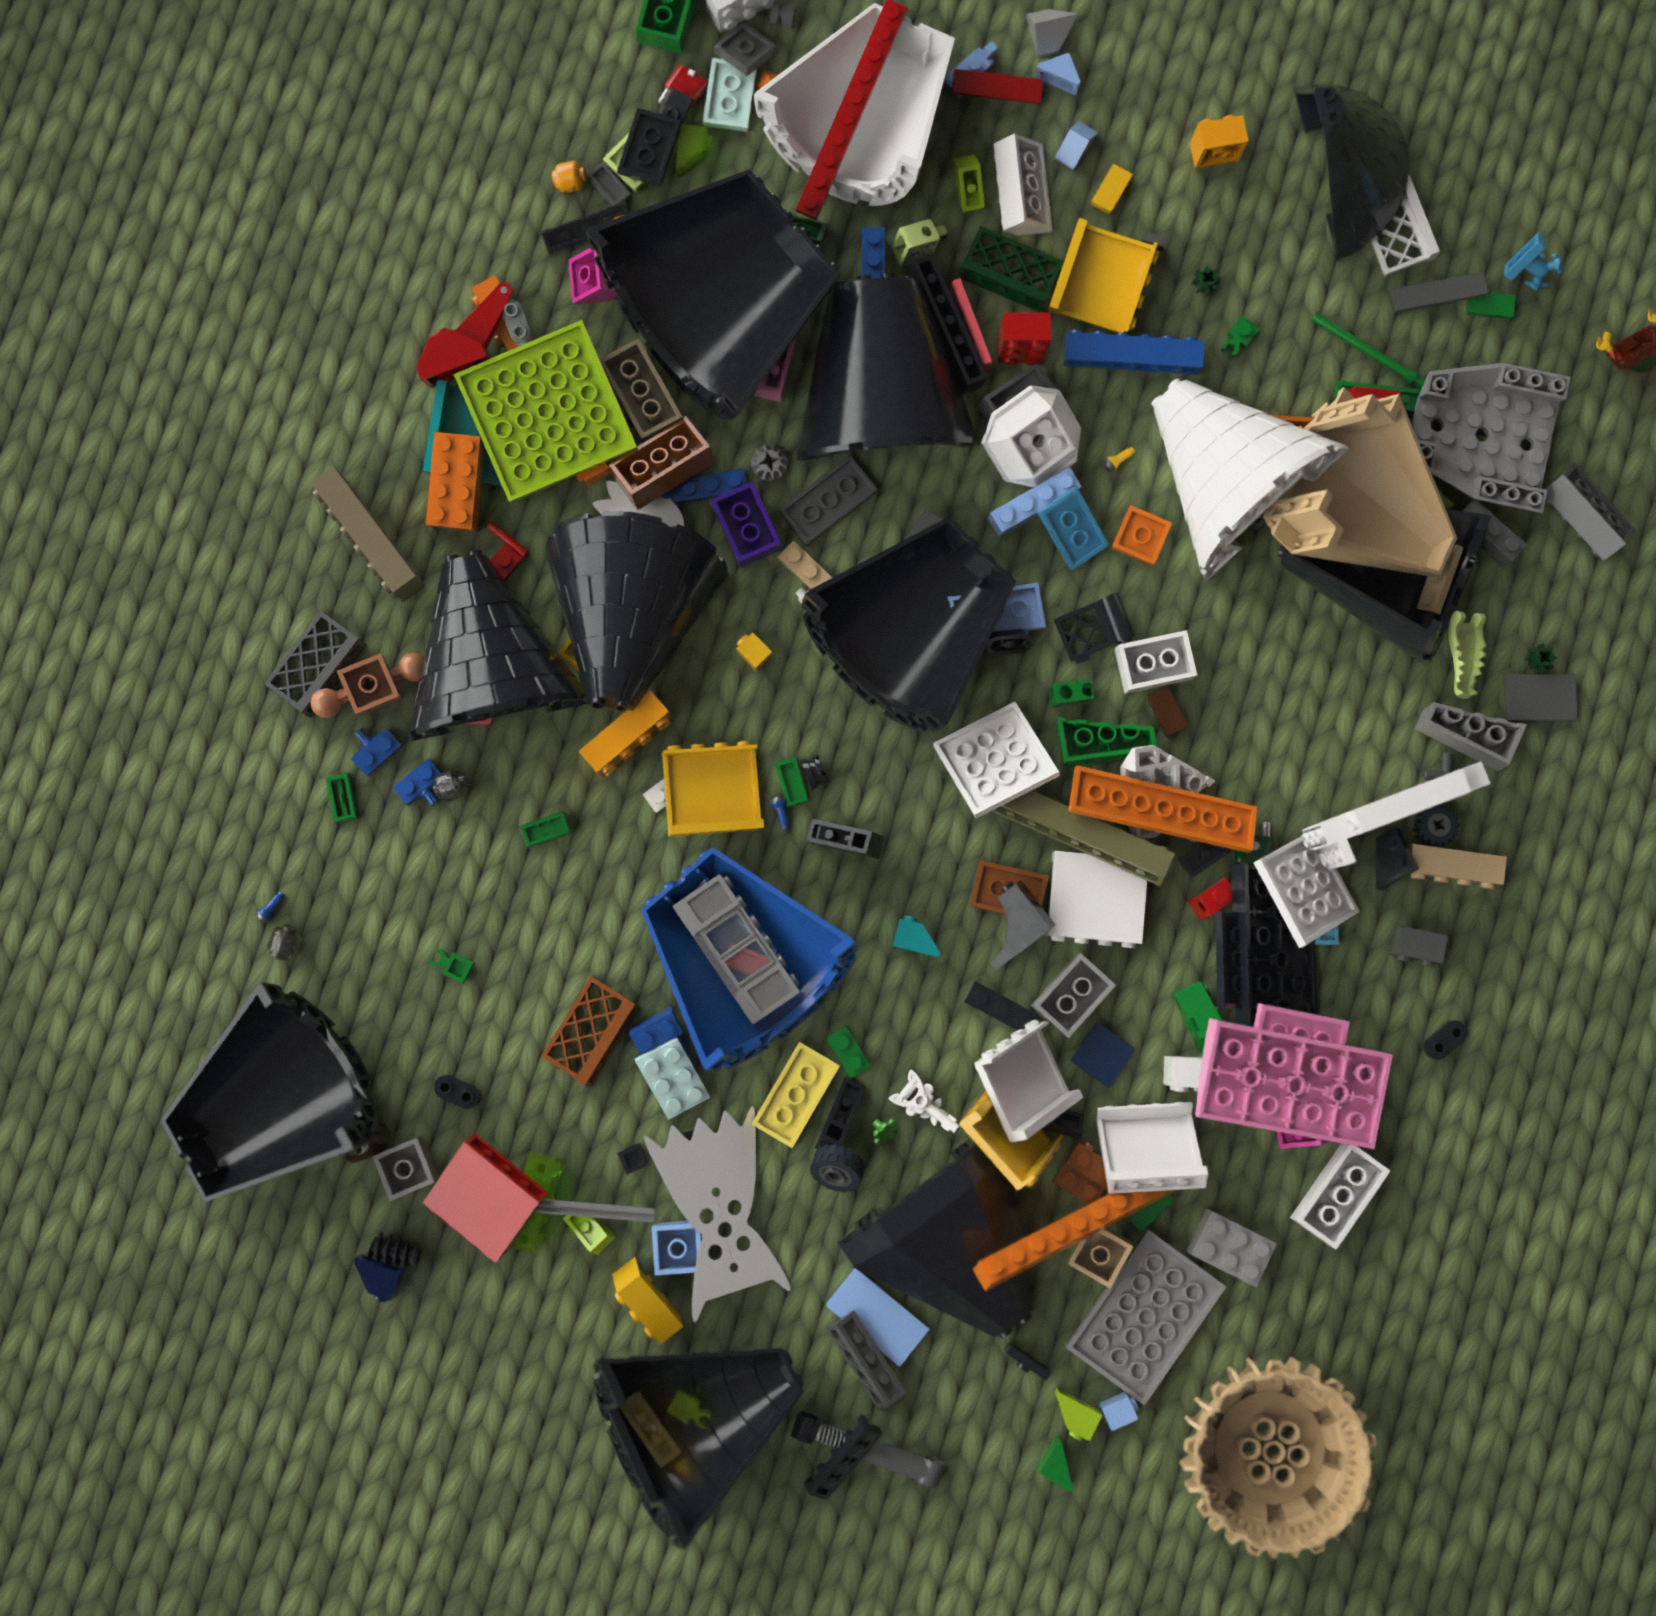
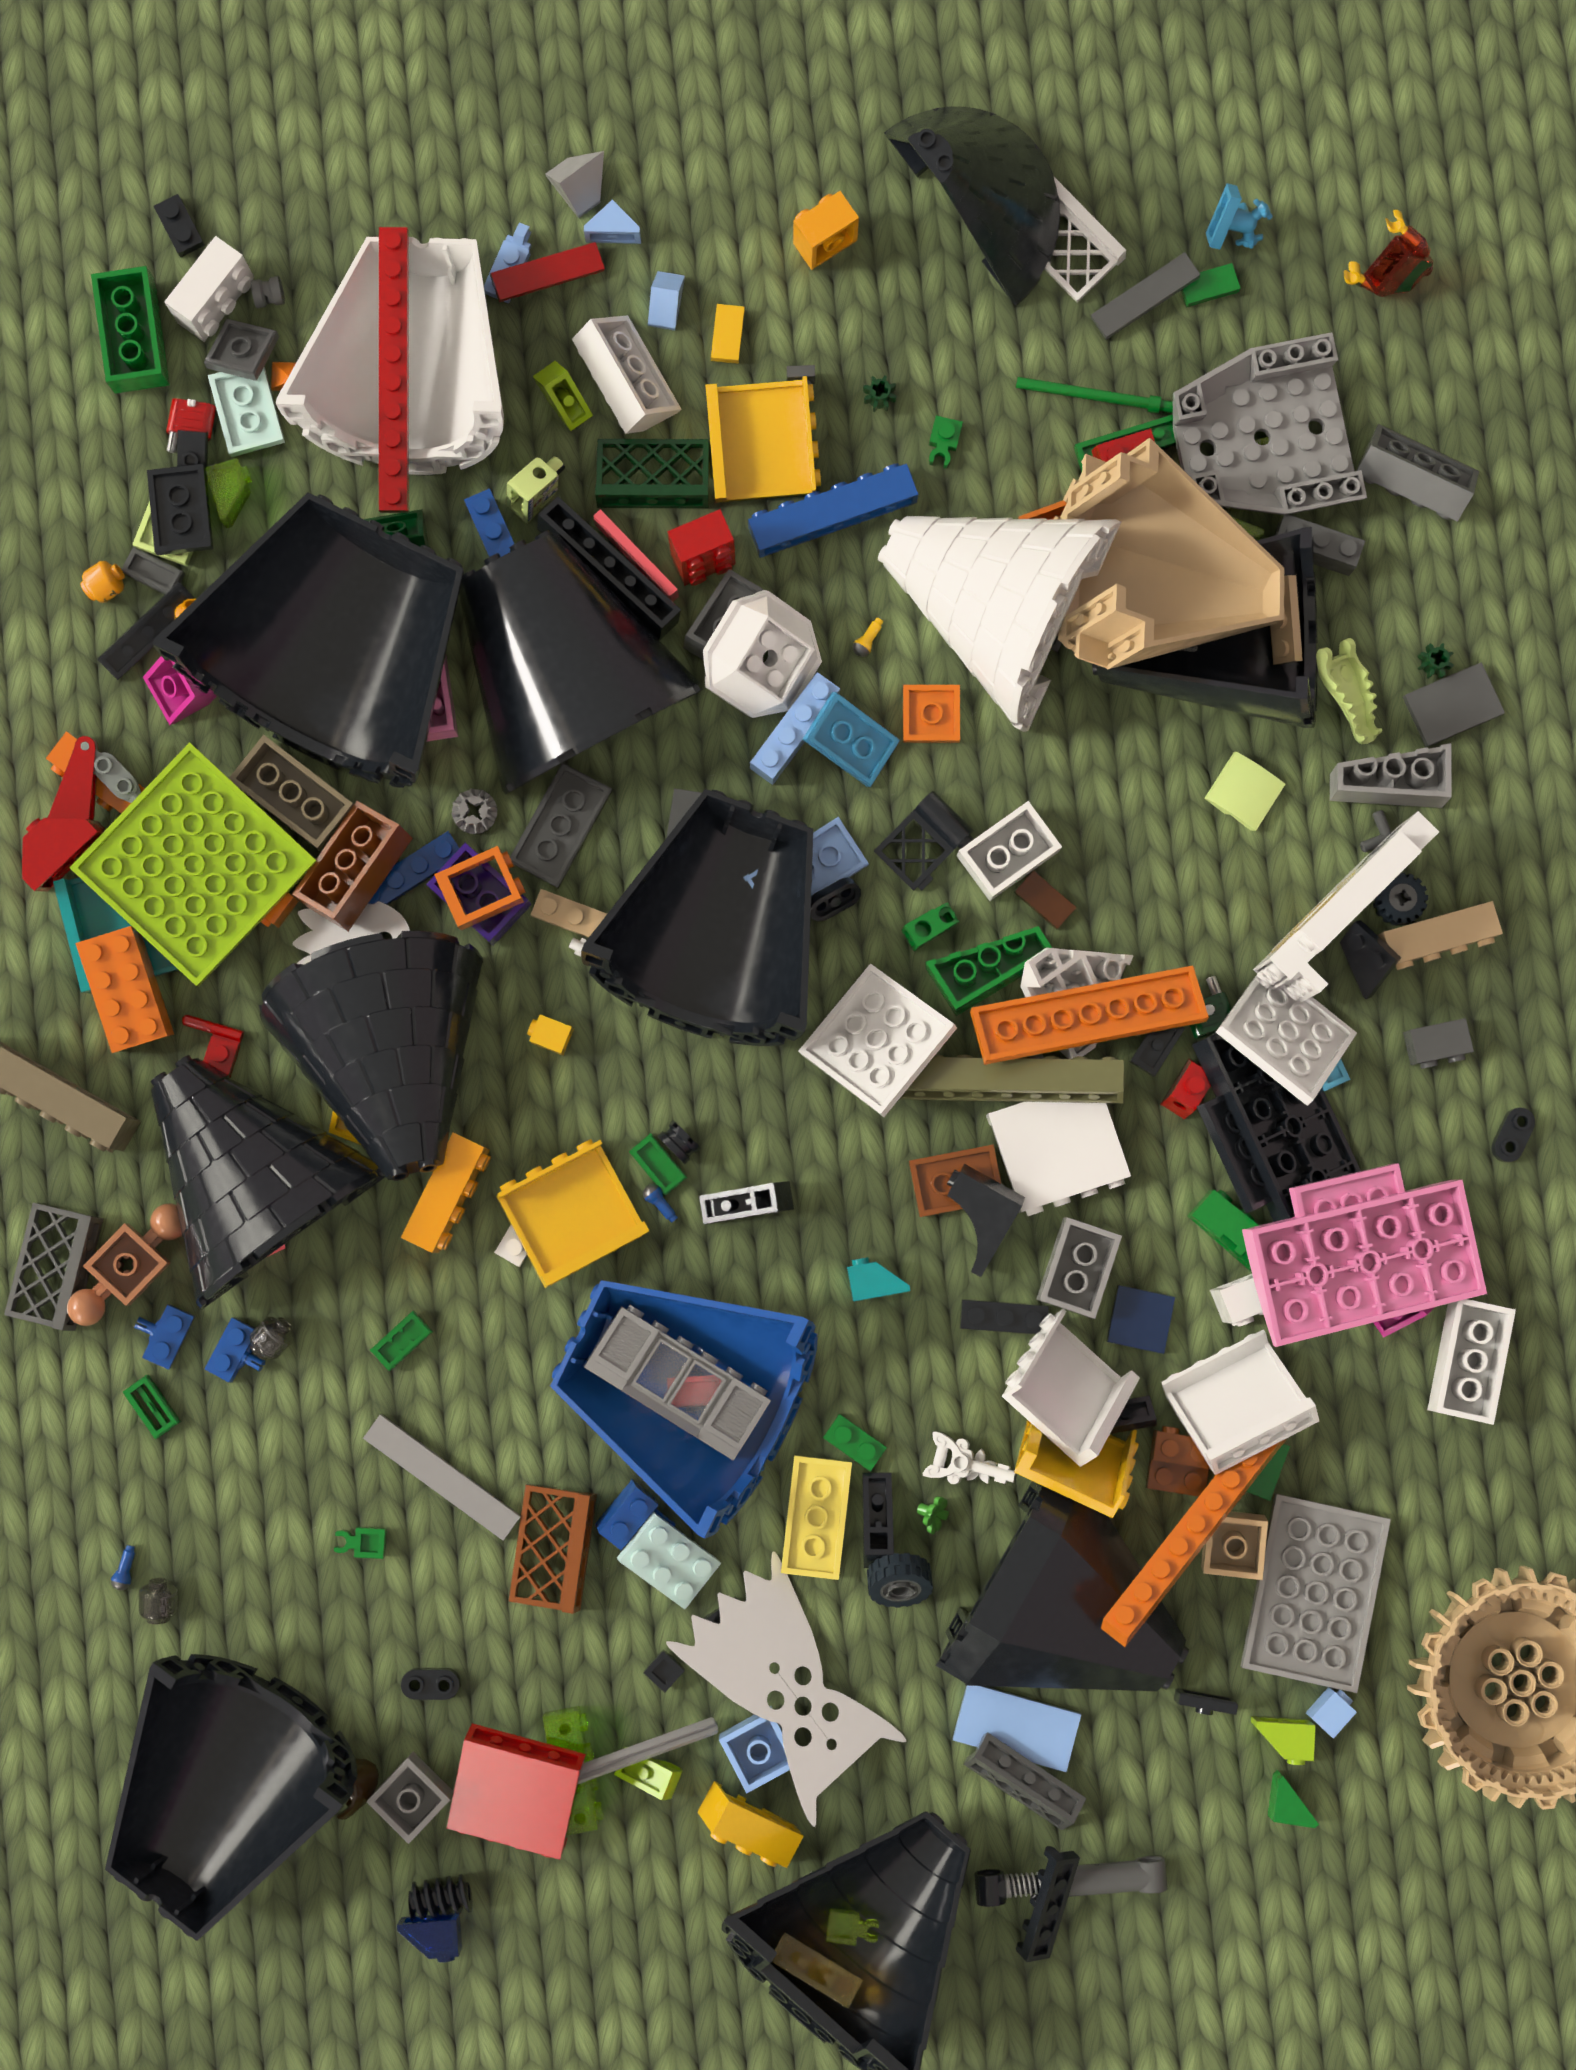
camera: 25 degrees left, 0 degrees up
(531, 943) = (442, 1477): none -> light grey tile
(749, 538) = (467, 920): none -> orange window
(1231, 1247) = (1377, 1473): light grey brick -> none
(1353, 694) = (1245, 791): none -> yellowish green slope

